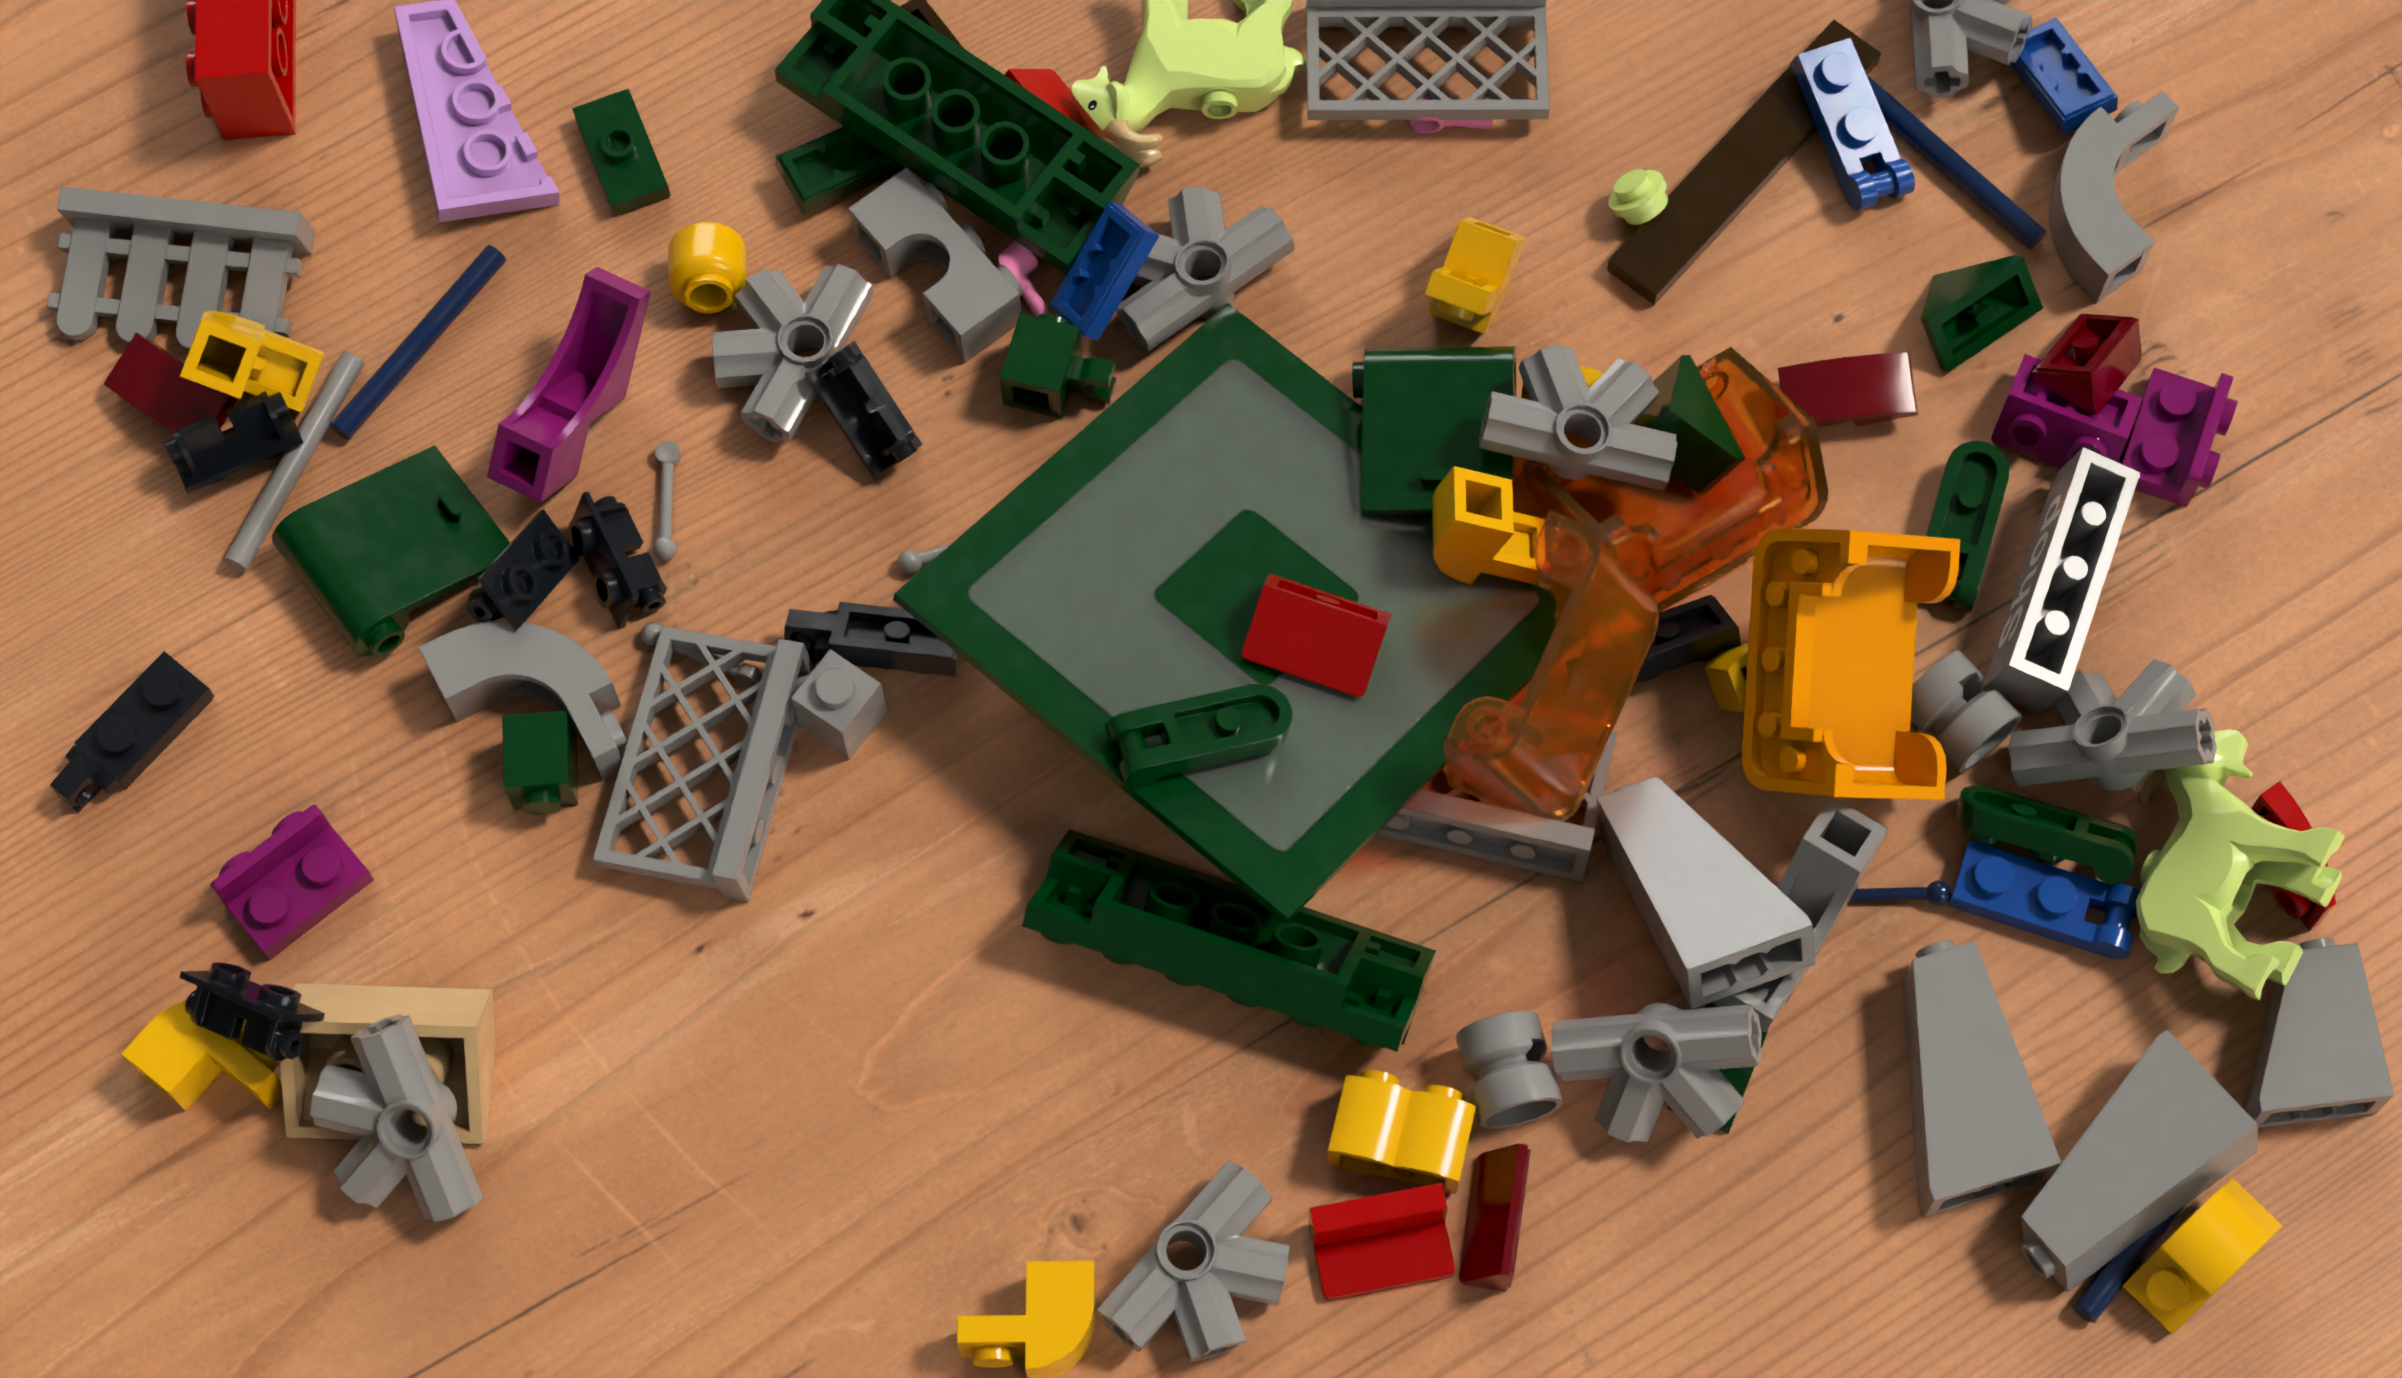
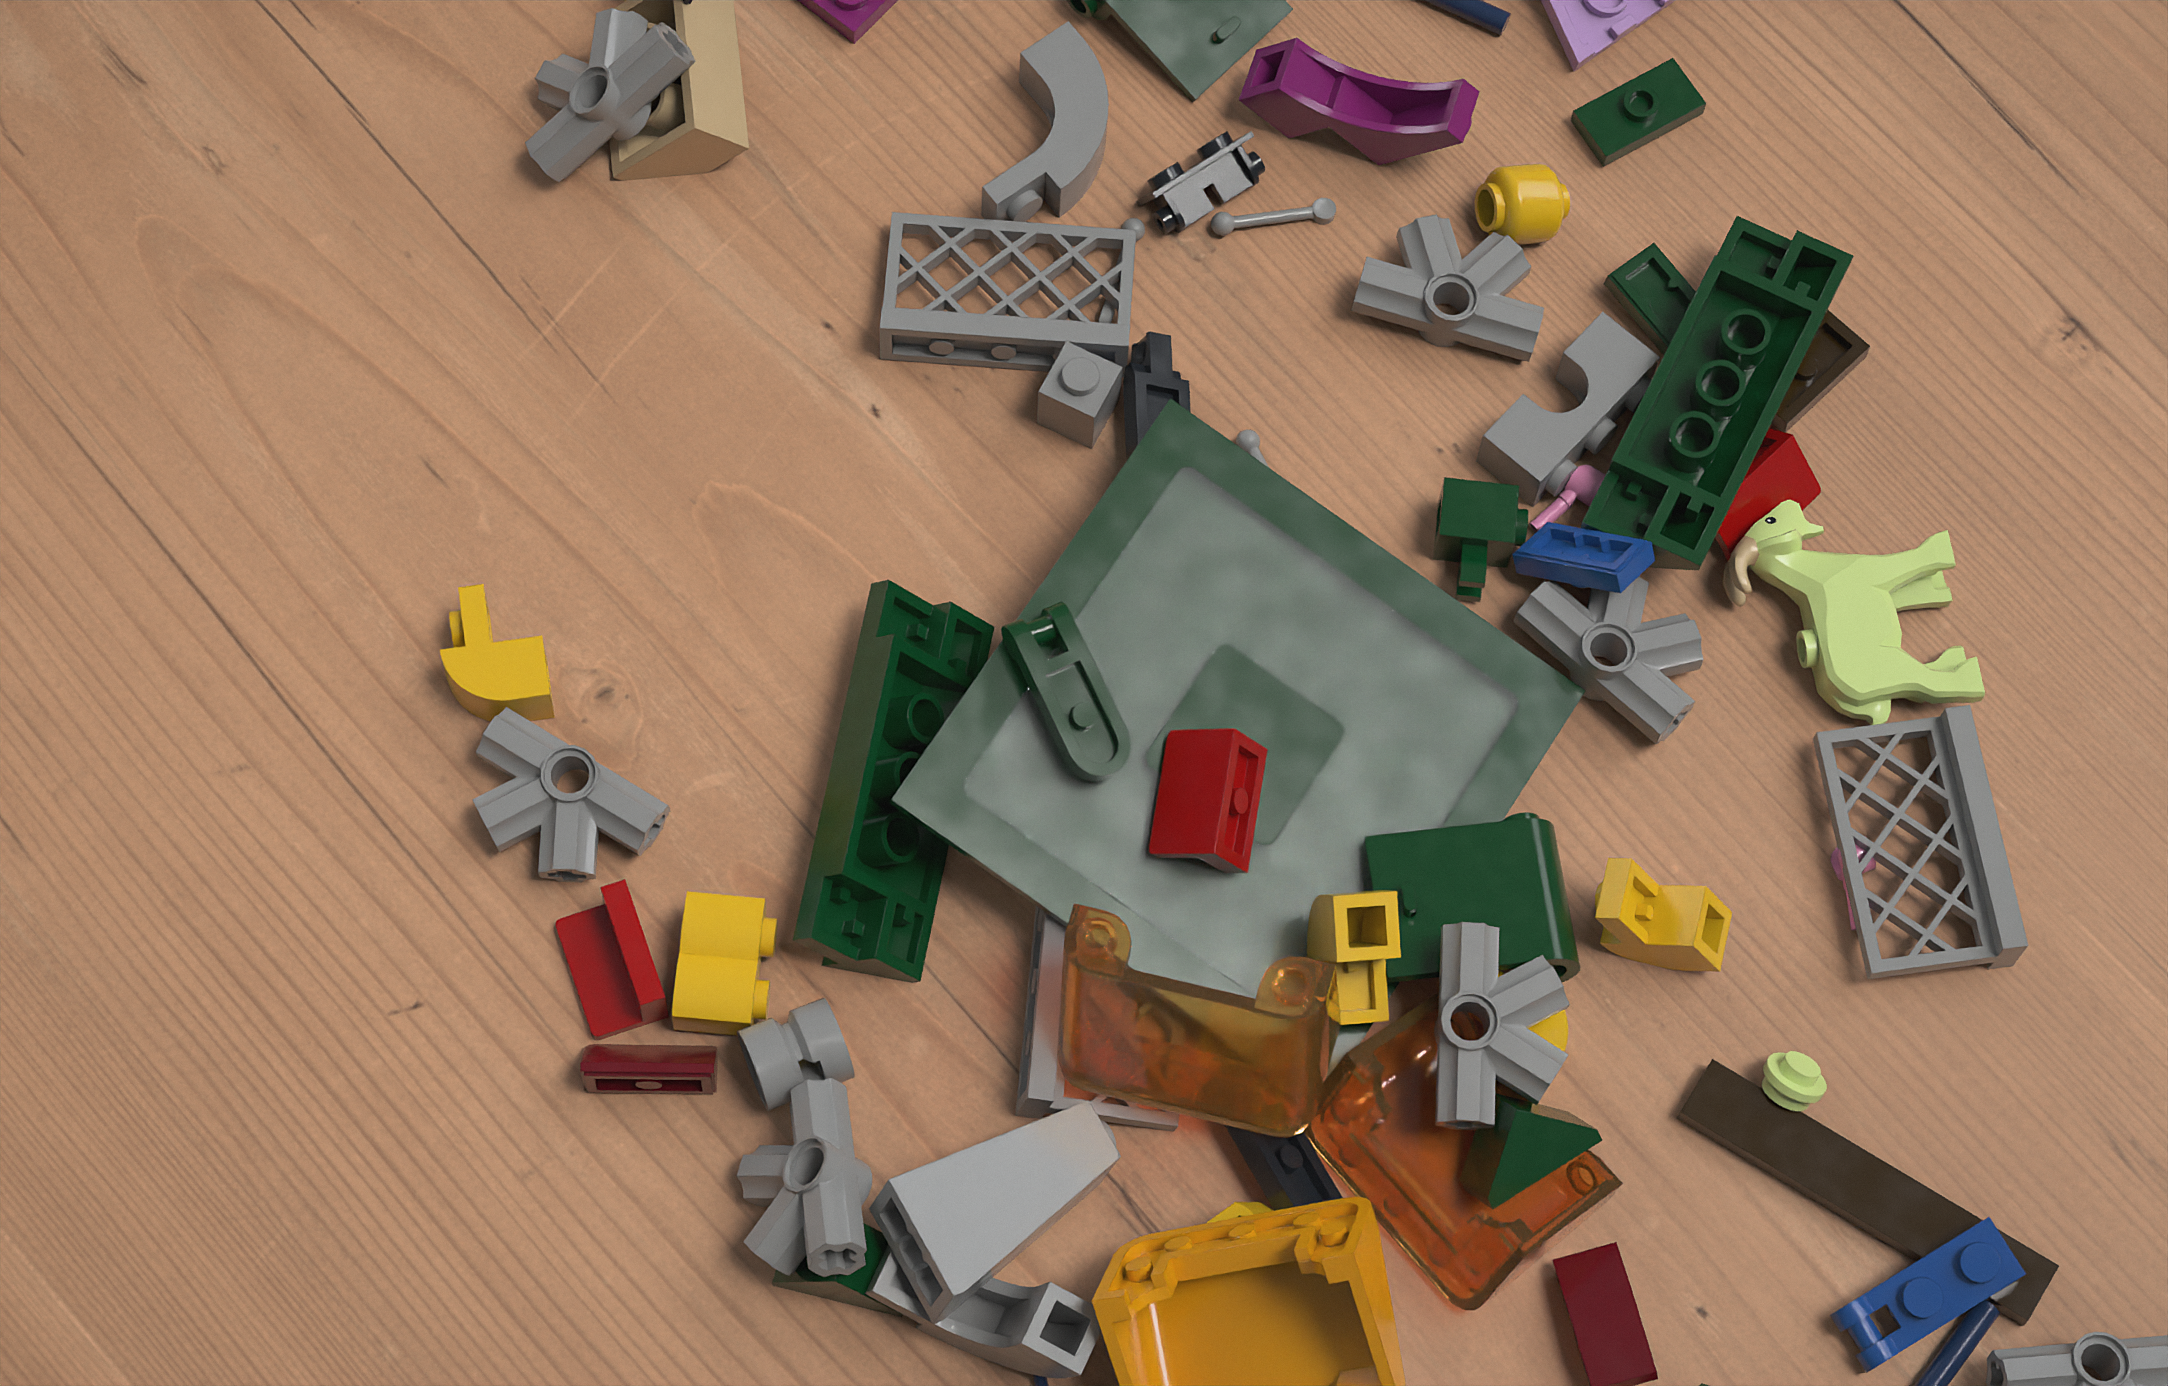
camera: 75 degrees right, 0 degrees up
(523, 573) = (1162, 98): black hinge -> none
(540, 761) = (977, 148): dark green brick -> none
(863, 409) = (1395, 367): black hinge -> none

